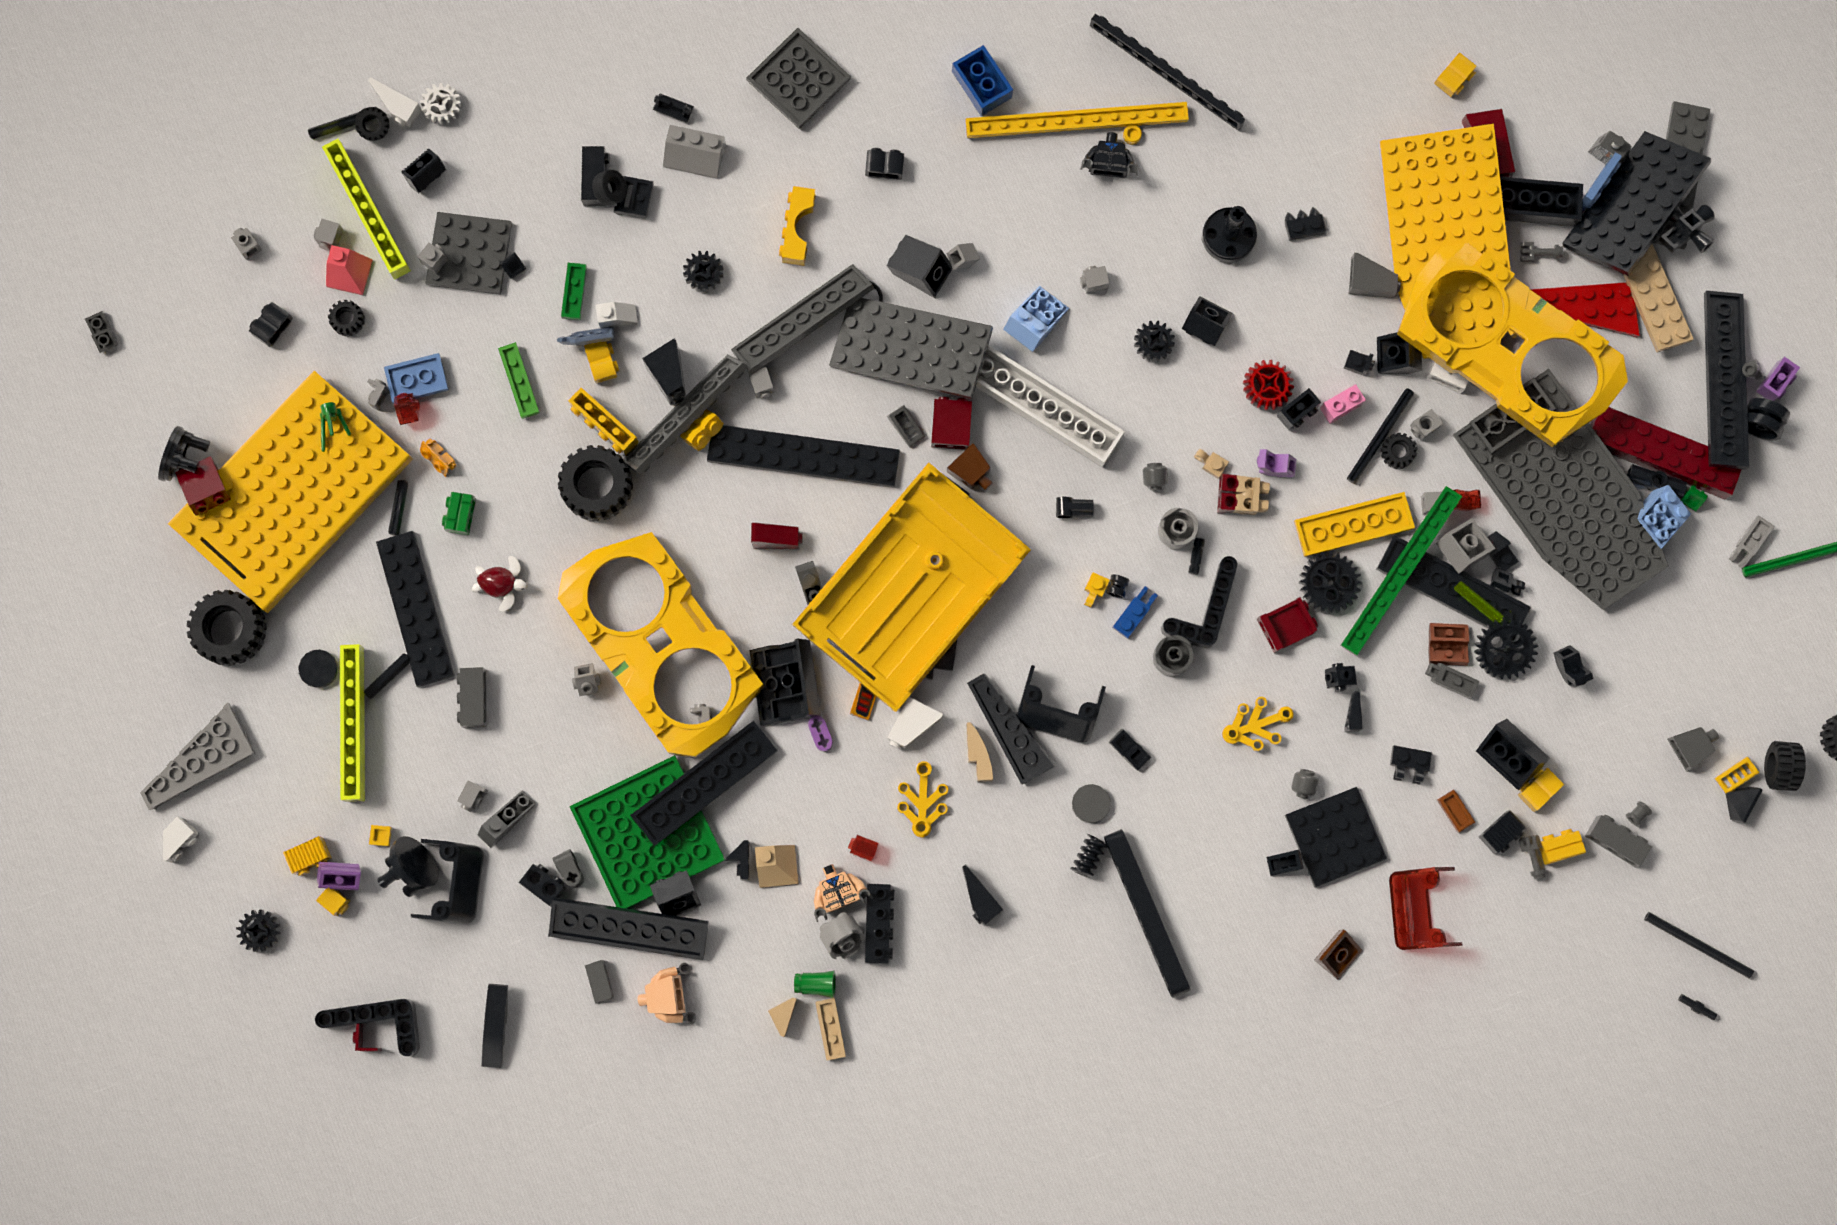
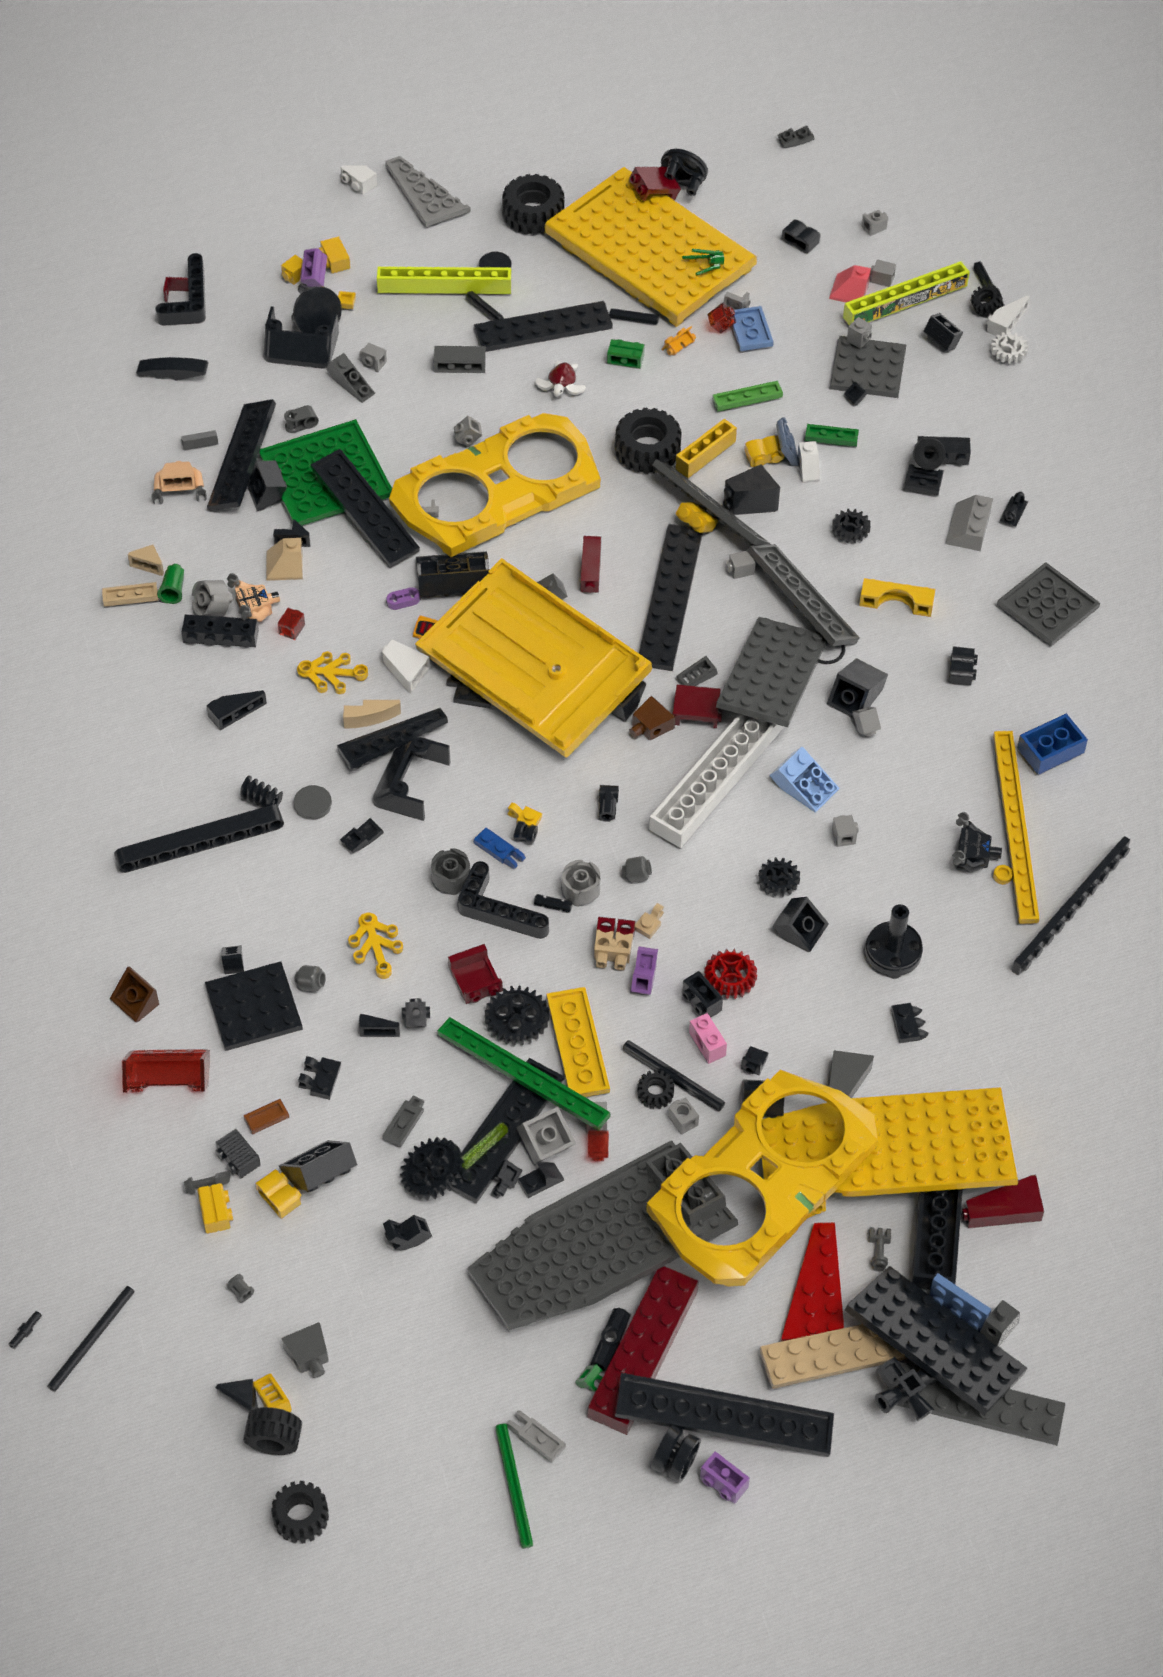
camera: 95 degrees right, 25 degrees down
(259, 923) = (276, 224): black gear -> none
(341, 307) = (810, 278): black tyre -> none
(540, 889) = (290, 398): black brick -> none
(1448, 644) = (443, 1121): copper slope -> none
(1455, 74) = (1084, 1175): yellow brick -> none
(1618, 840) = (213, 1264): dark grey brick -> none
(1664, 515) = (565, 1329): light blue slope -> none
(1752, 369) = (733, 1435): dark grey hinge -> none

